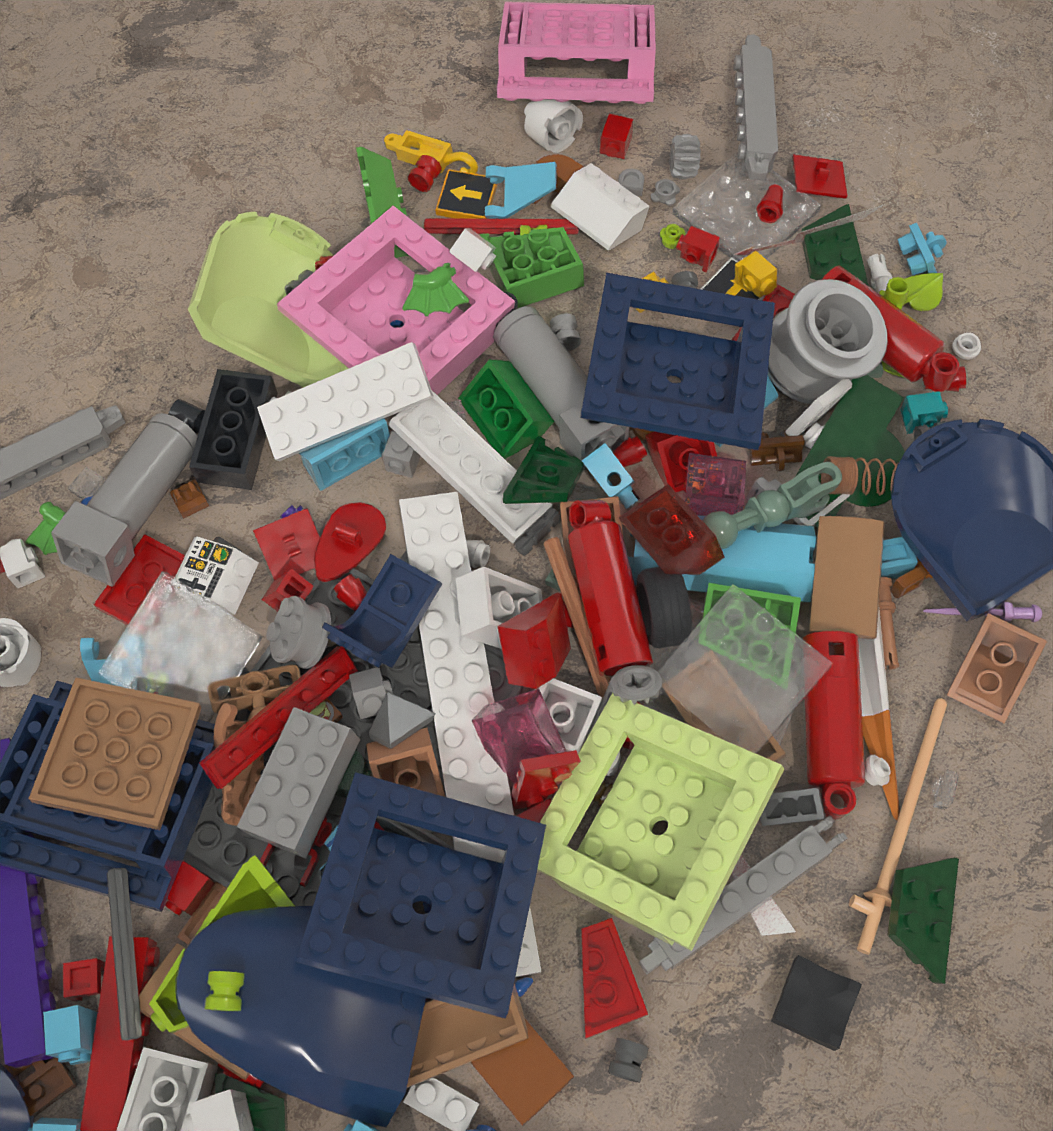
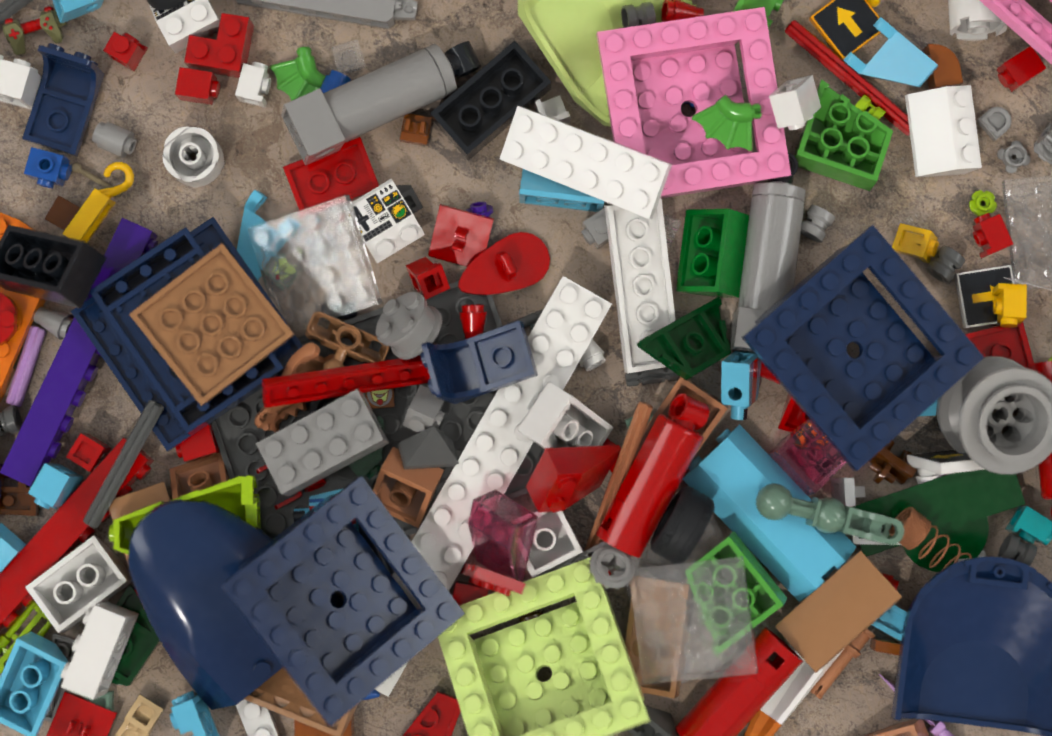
camera: 40 degrees right, 20 degrees up
(225, 987) = (166, 558): lime wheel -> none
(673, 534) = (731, 480): clear red slope -> none

